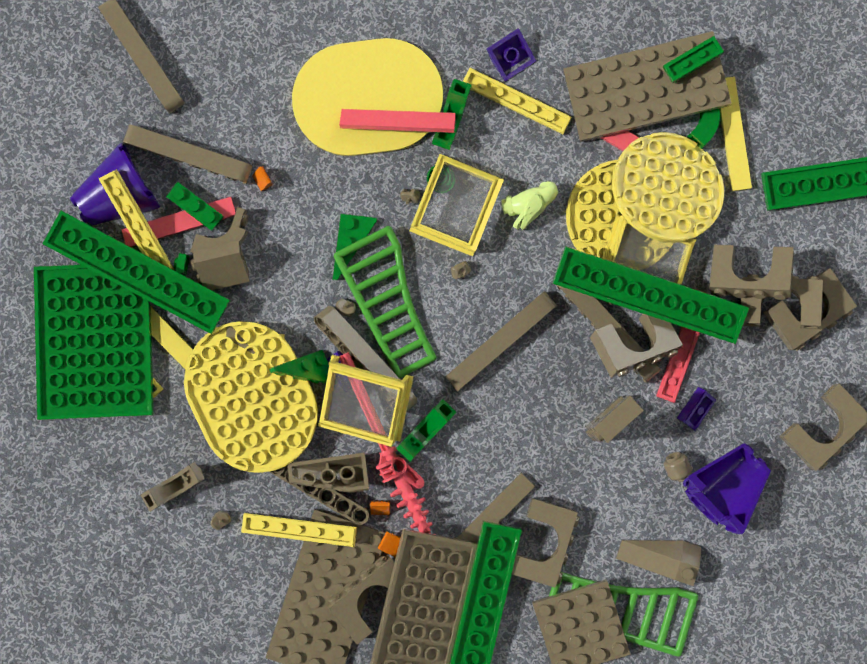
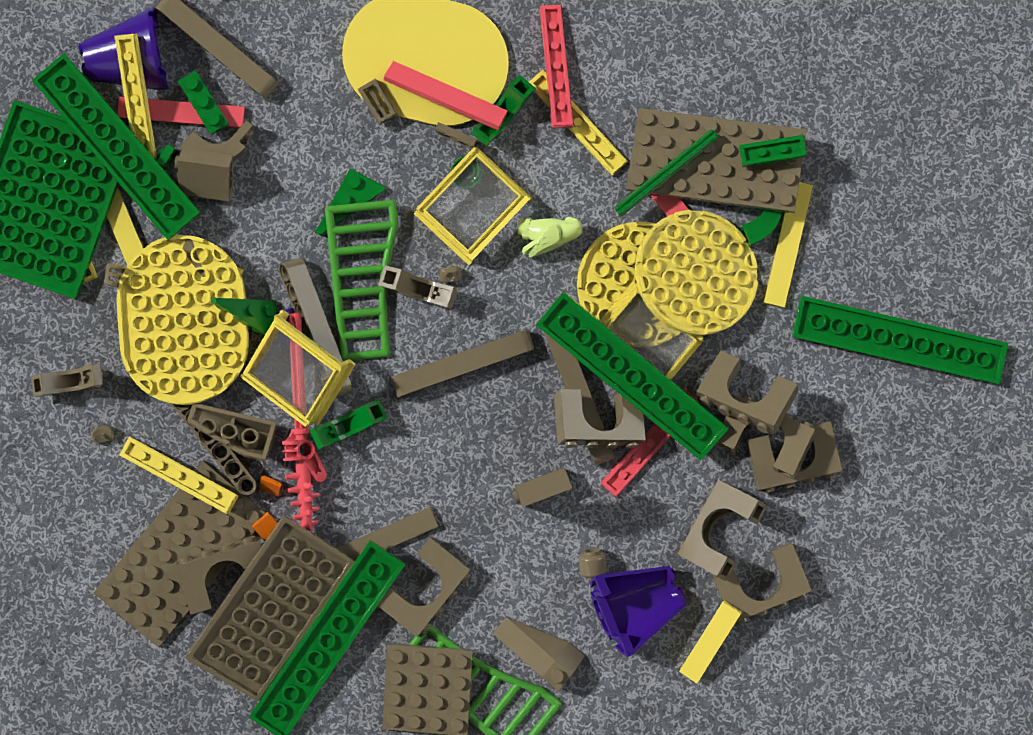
camera: 15 degrees right, 0 degrees up
(172, 382) = (108, 274): none -> dark tan tile
(262, 179) = (283, 101): orange slope -> none
(345, 307) = (317, 267): dark tan piece -> none
(354, 158) = (386, 117): none -> dark tan tile
(411, 196) = (430, 179): dark tan piece -> none
(419, 151) = (455, 135): none -> dark tan tile
(438, 291) = (417, 288): none -> dark tan arch
(480, 61) = (556, 67): none -> coral tile
(509, 52) = (590, 69): dark purple slope -> none
(609, 113) = (666, 172): none -> green axle
(696, 408) = (636, 512): dark purple slope -> none
(765, 371) = (721, 502): none -> dark tan arch
(803, 493) = (710, 641): none -> light yellow tile

